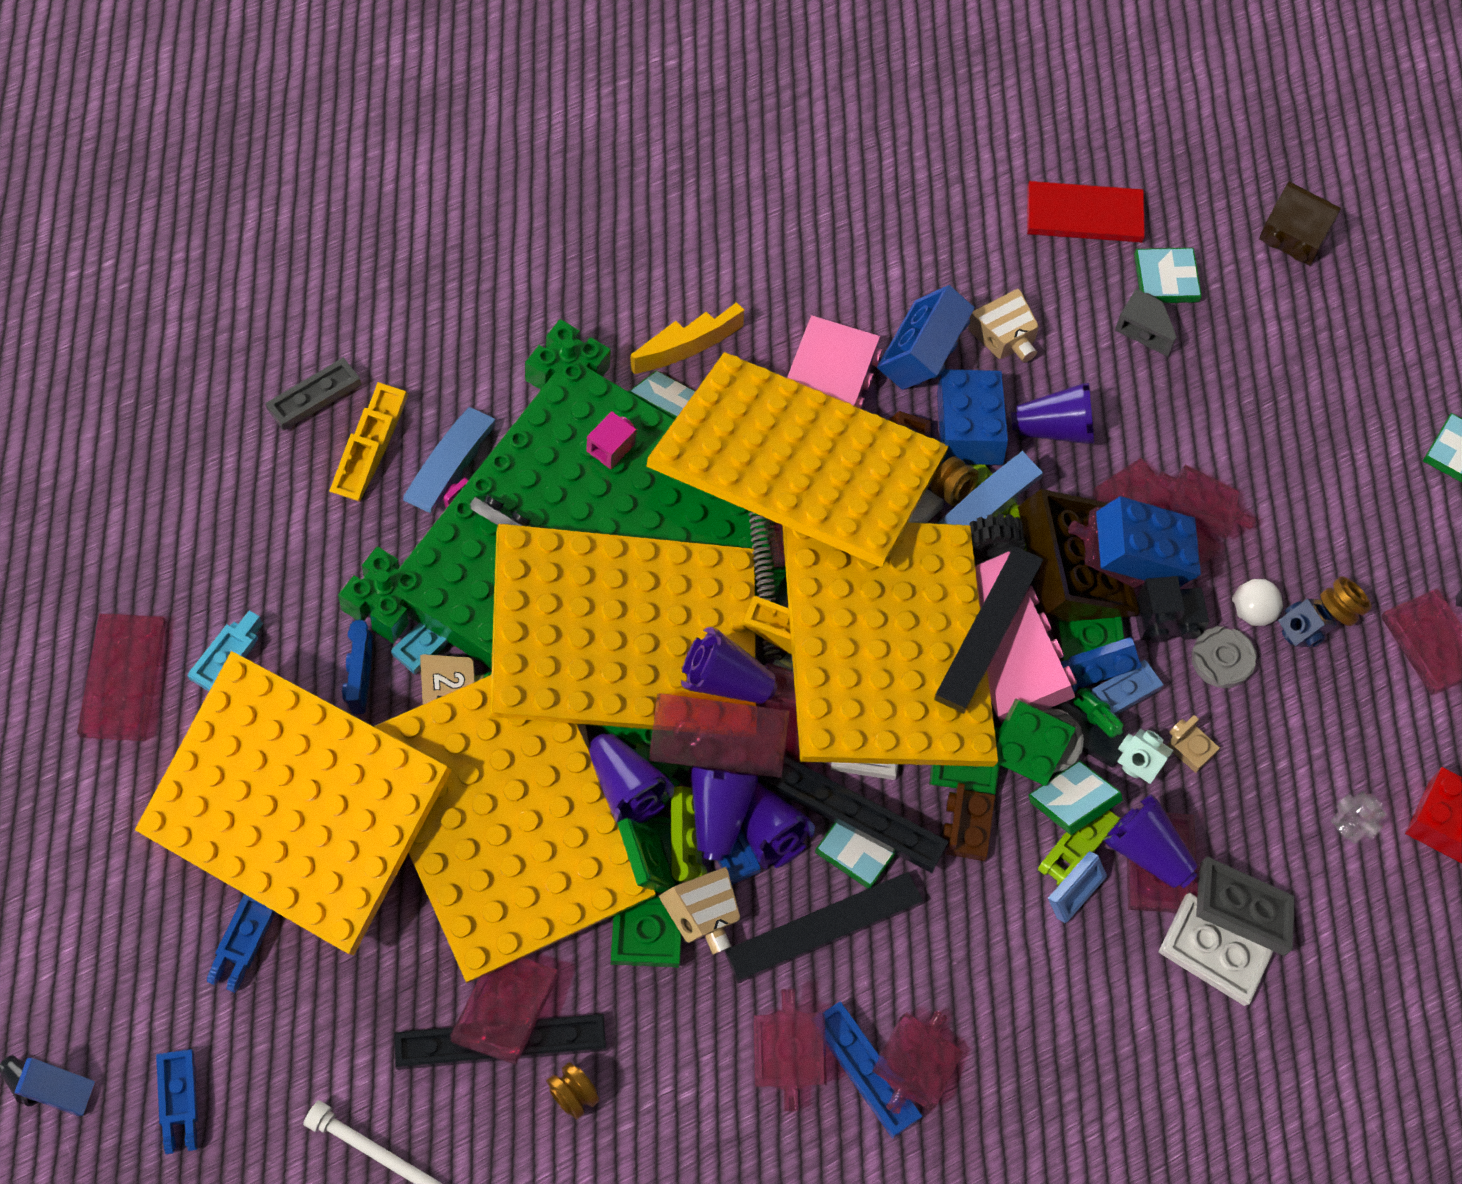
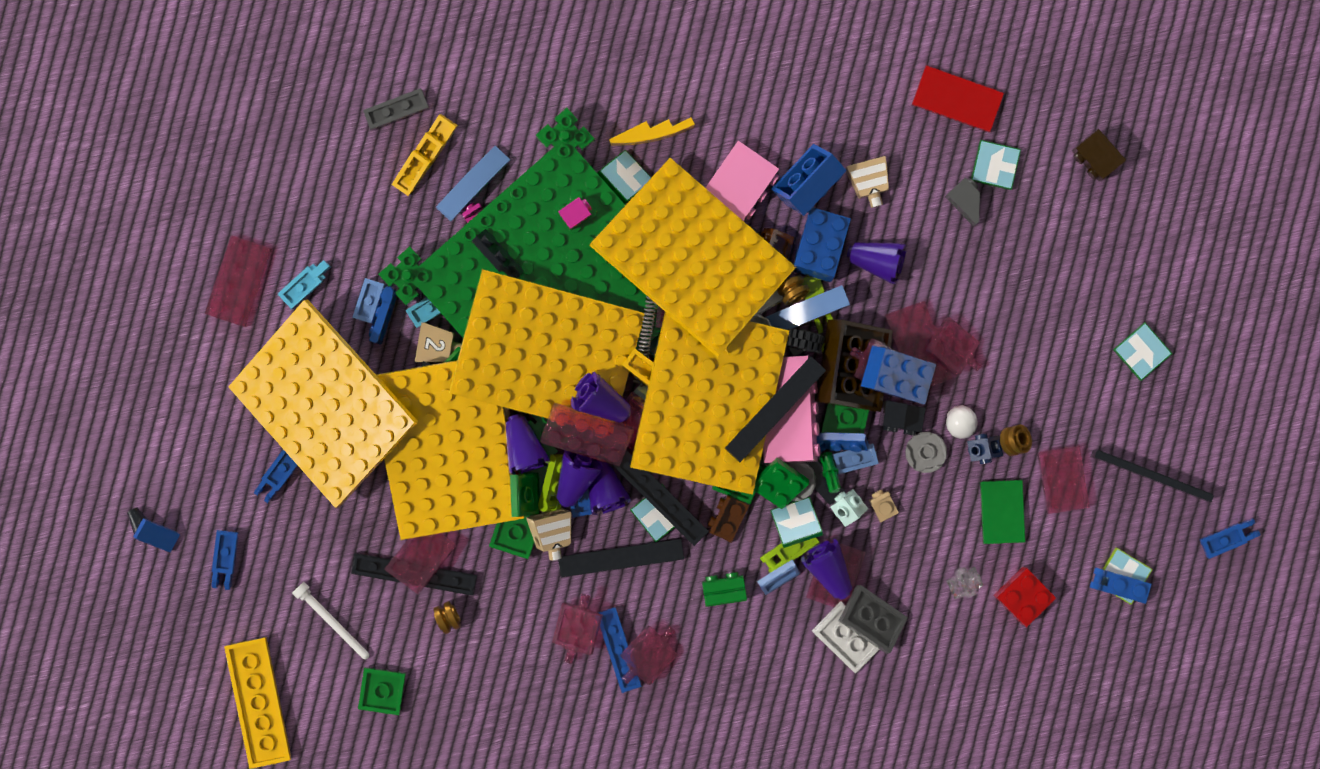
camera: 15 degrees right, 25 degrees up
(331, 652) = (368, 301): none -> medium blue plate
(1001, 928) = (724, 590): none -> green brick
(1367, 710) = (1002, 512): none -> green tile

